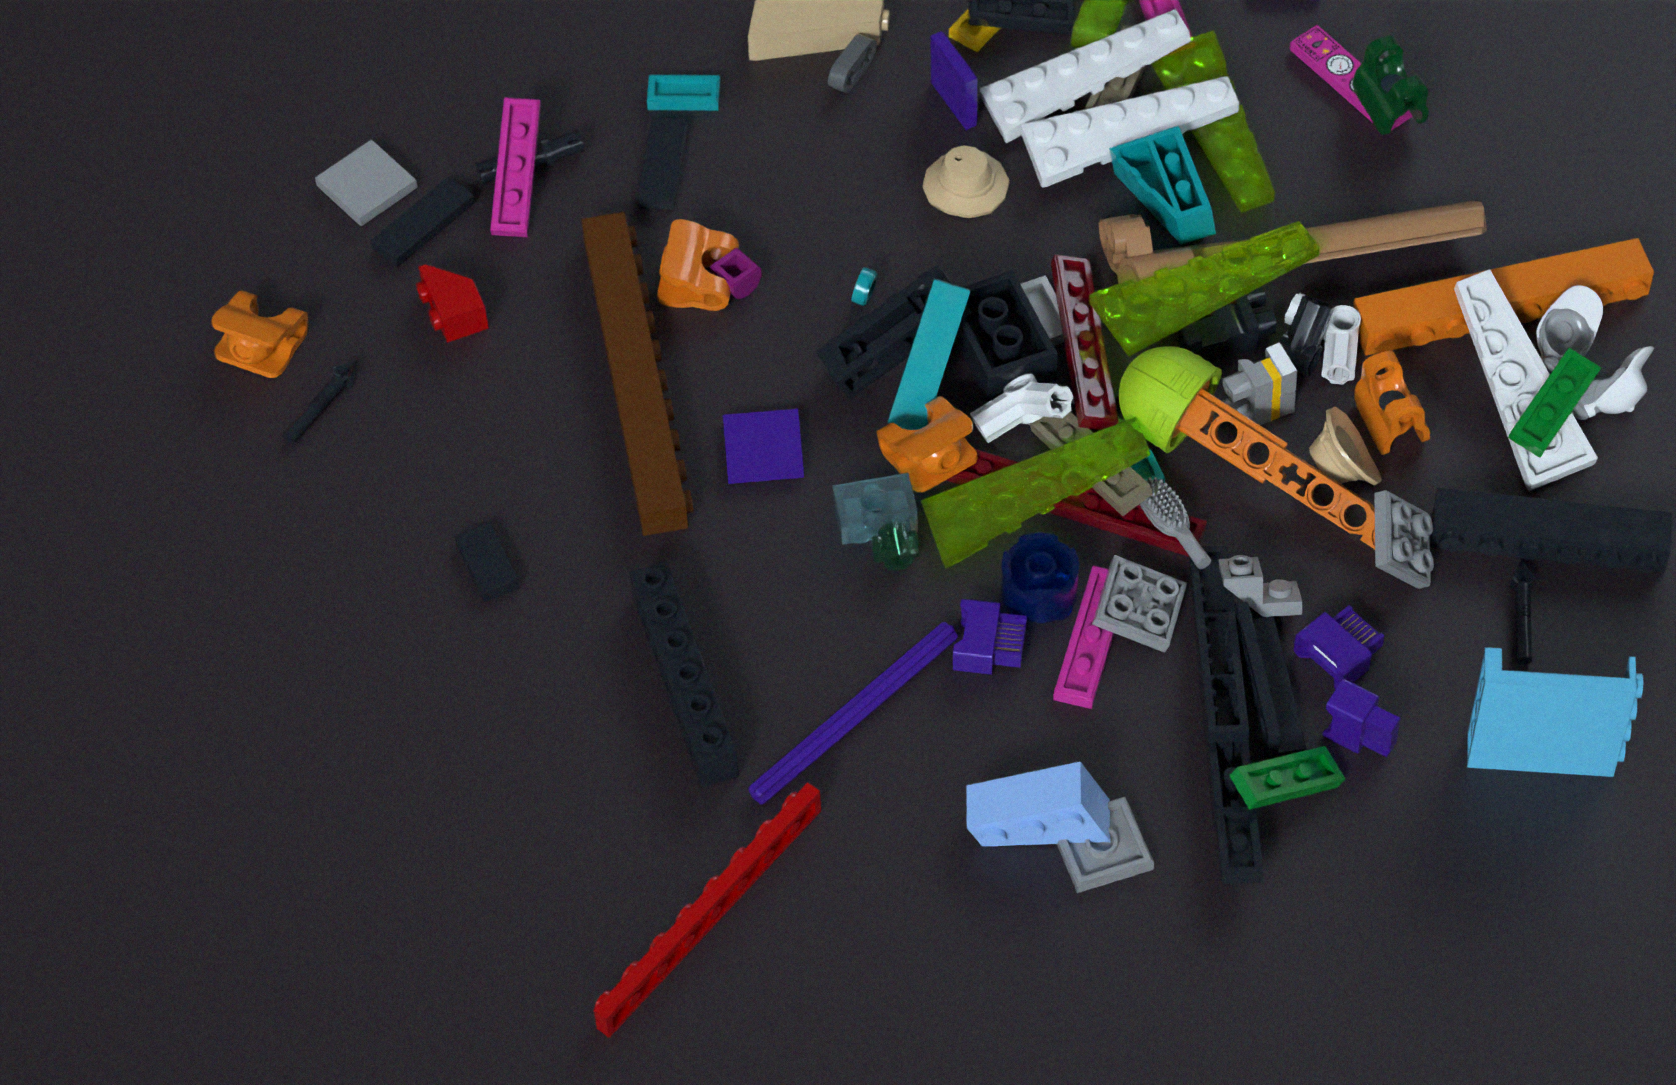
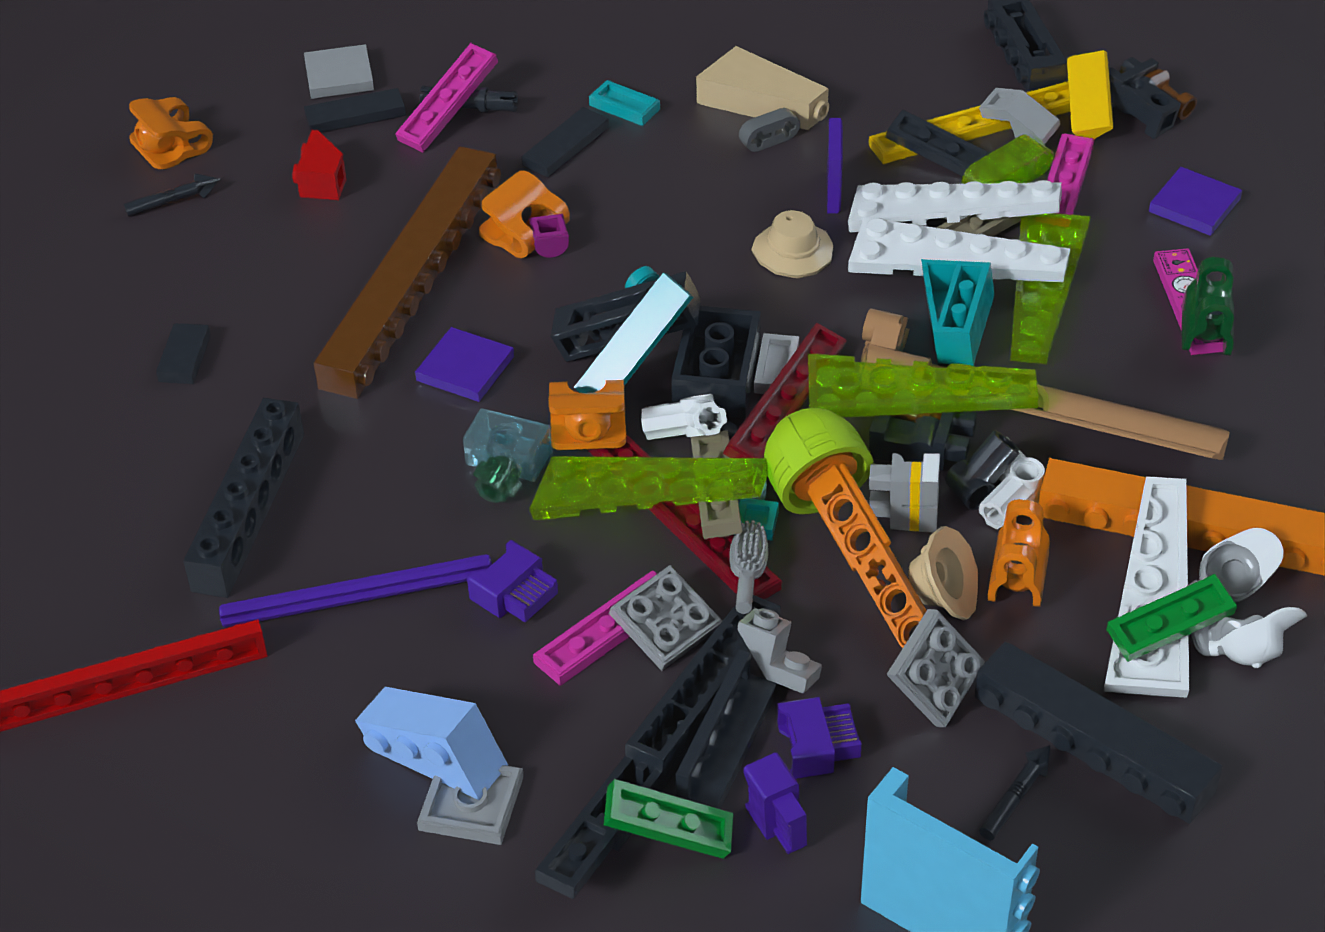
camera: 30 degrees right, 10 degrees down
(1040, 578) = (592, 556): clear blue brick -> none

